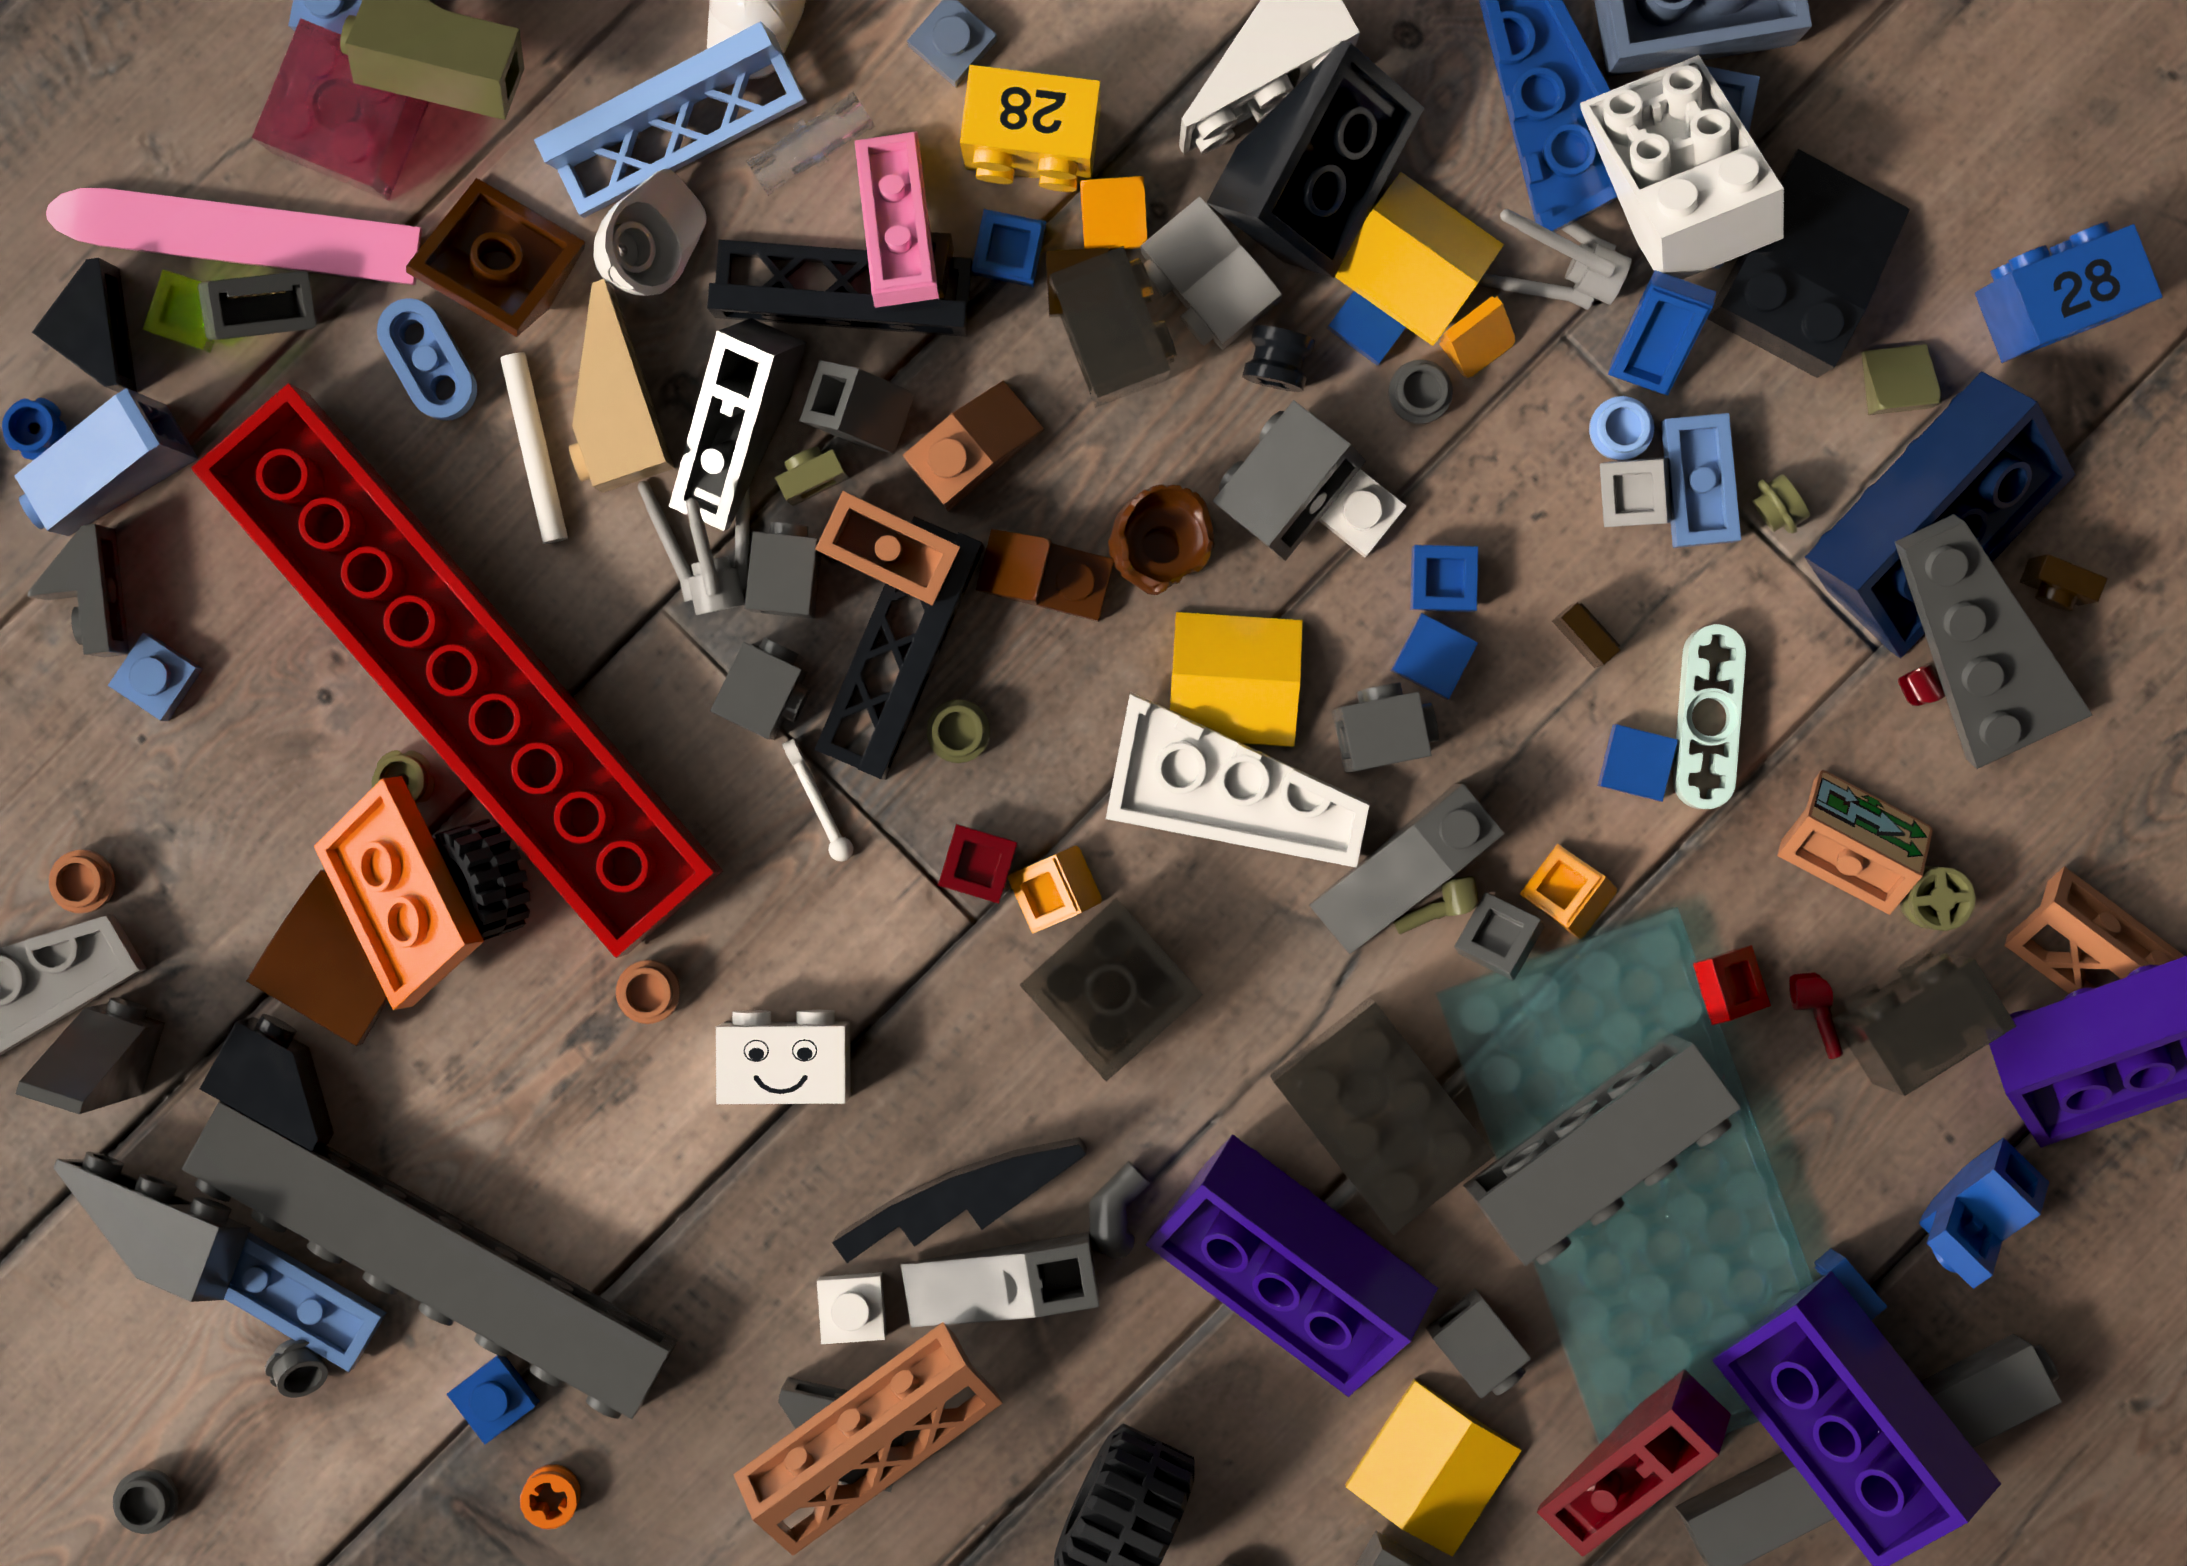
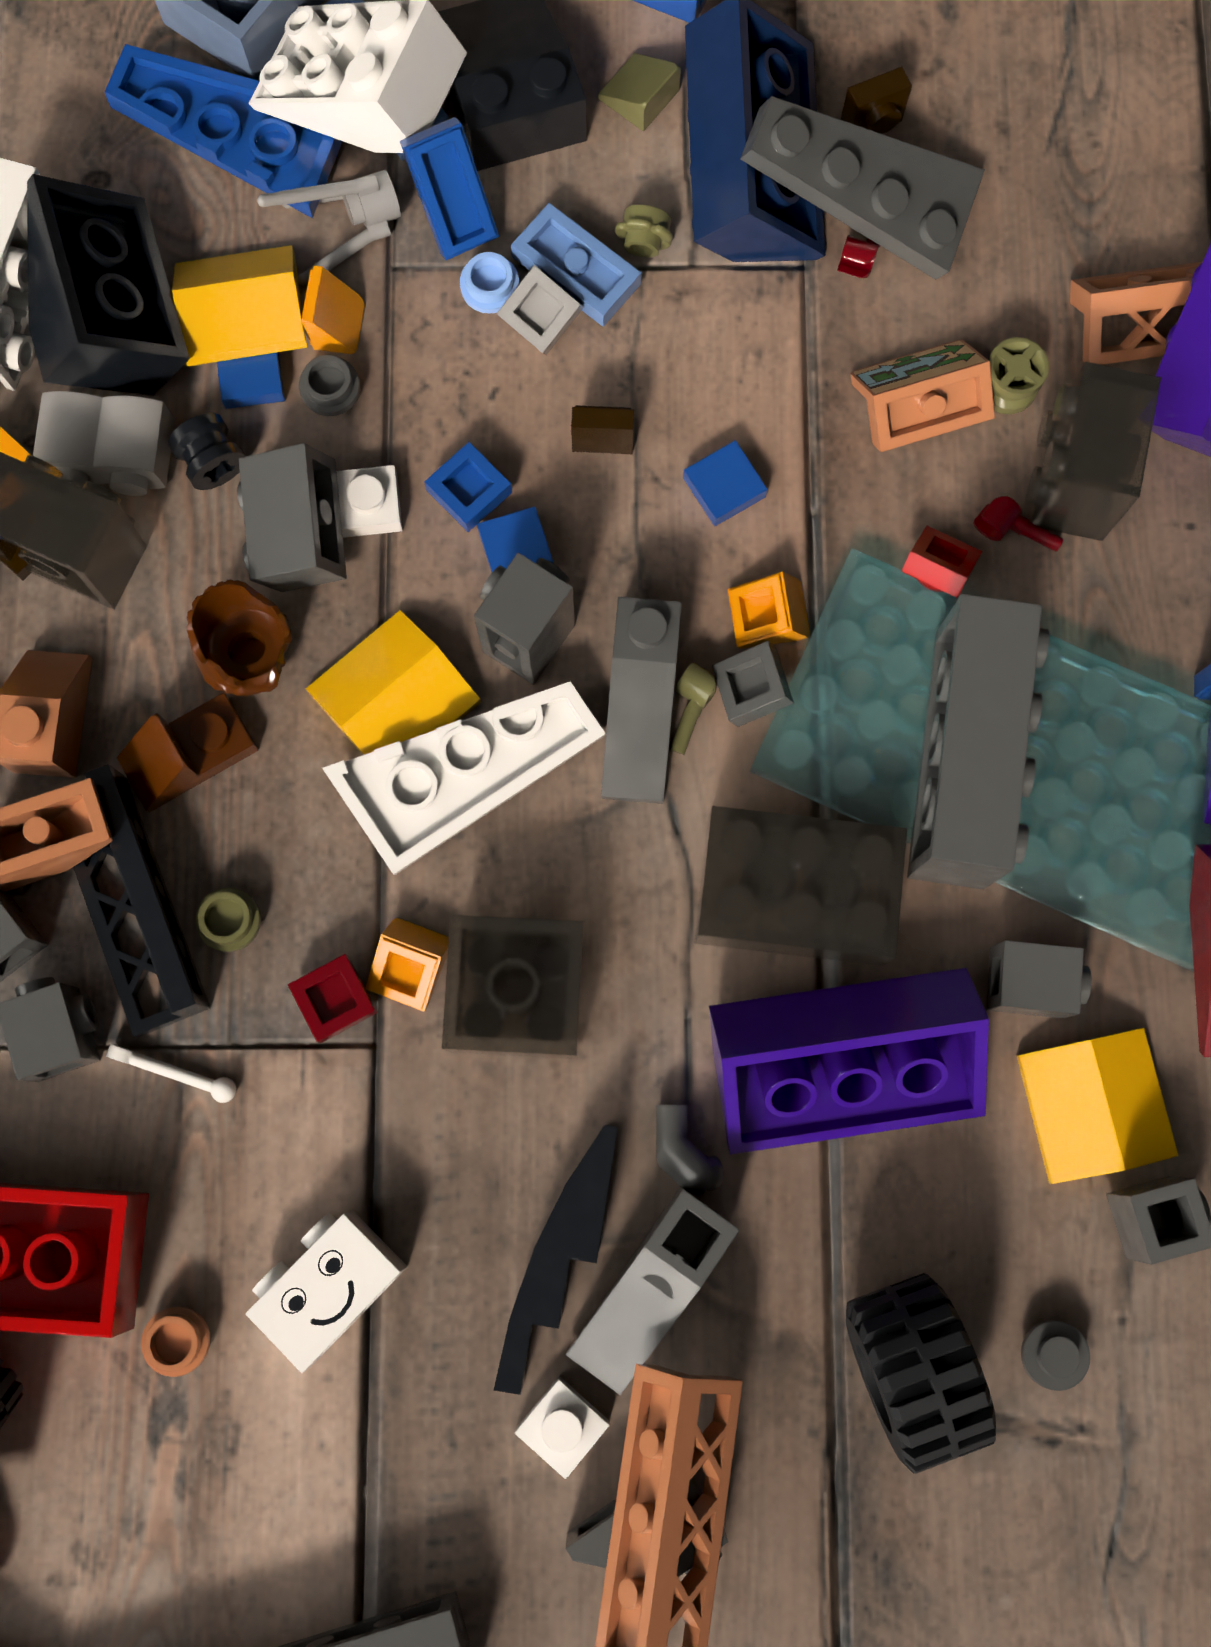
camera: 45 degrees left, 10 degrees down
(1698, 668) = (725, 365): light aqua beam -> none

